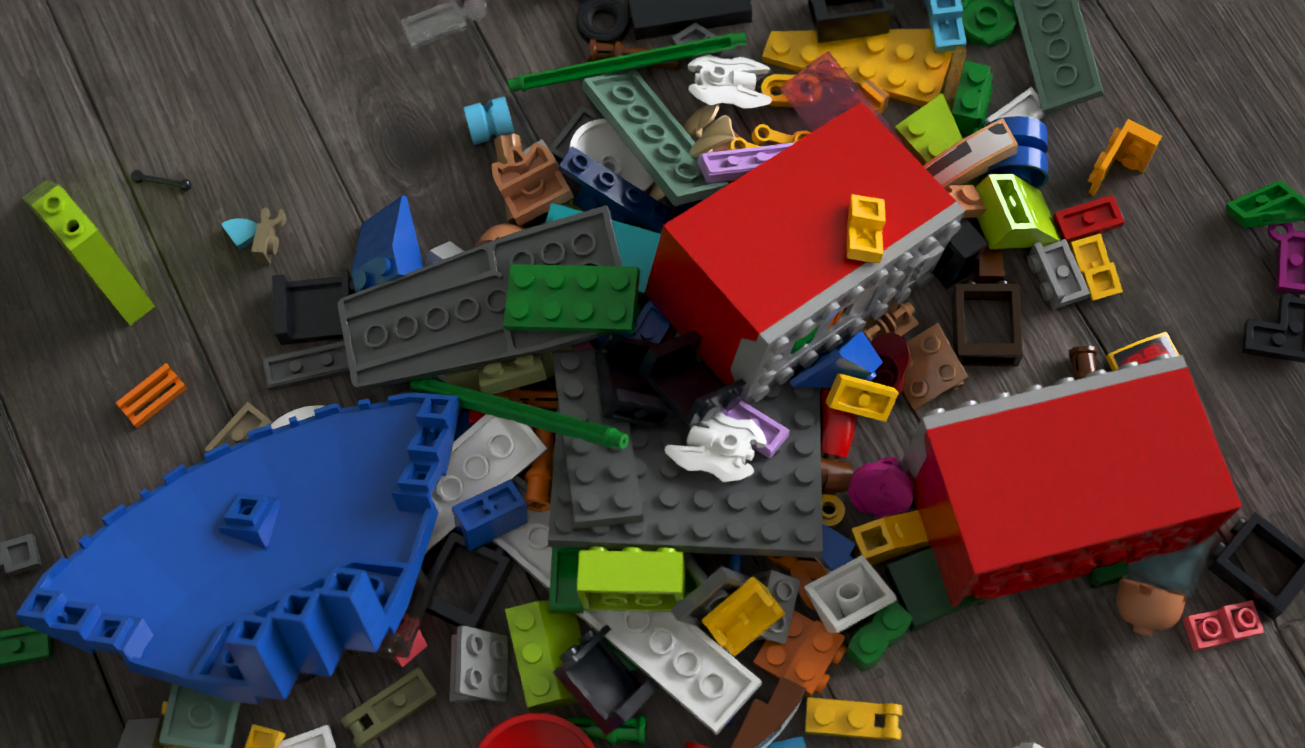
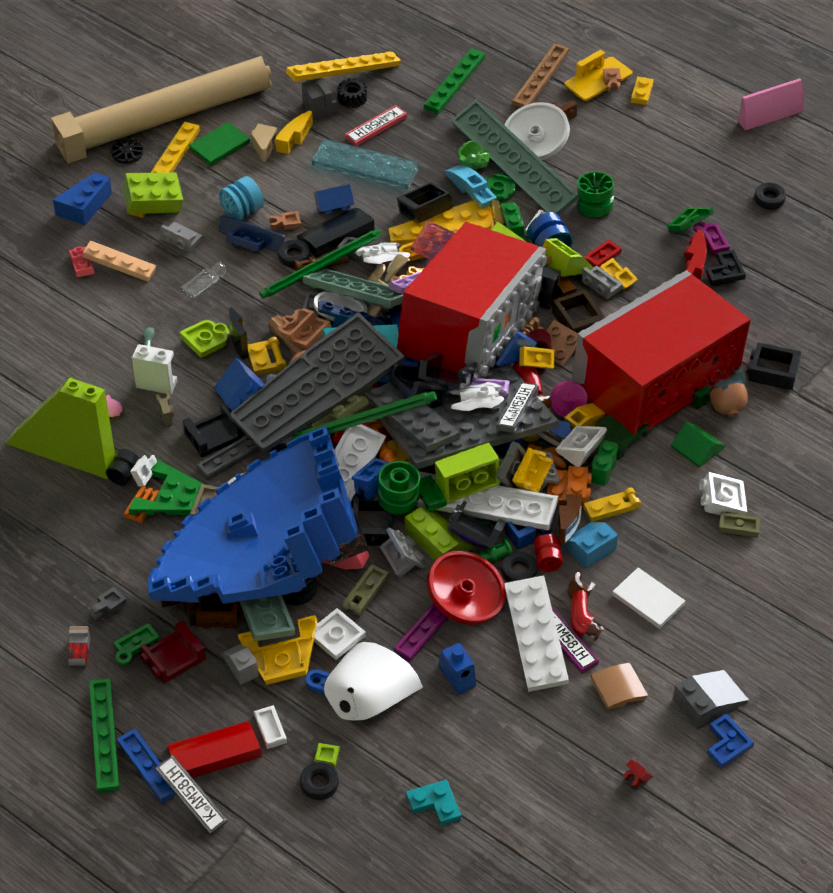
camera: 30 degrees left, 20 degrees down
(54, 692) = (173, 653): none -> dark red panel
(151, 321) = (120, 468): none -> black wheel
(174, 340) = (142, 470): none -> white plate
(193, 198) = (114, 407): none -> bright pink animal
(204, 402) = (175, 495): none -> green wing
(240, 231) = (147, 413): medium azure tile -> none
(274, 164) = (153, 369): none -> white panel
(314, 87) = (148, 334): none -> sand green piece
(393, 127) = (205, 337): none -> lime plate
(432, 145) = (238, 334): none -> black slope
(455, 197) = (260, 359): none -> yellow plate
(488, 120) = (259, 314): medium azure wheel -> none
(514, 557) = (398, 487): none -> green wheel
(572, 298) = (364, 358): green plate -> none
(675, 716) = (520, 535): none -> blue panel
(768, 497) = (517, 407): none -> tile
(865, 229) = (503, 265): yellow slope -> none
(973, 155) = (536, 229): slope -> none
(1054, 662) = (696, 444): none -> green slope
(1131, 146) = (608, 216): light orange bracket -> none
(1133, 91) = (595, 194): none -> green wheel
(1223, 626) = (770, 400): coral slope -> none
(1239, 293) = (696, 255): none -> red slope

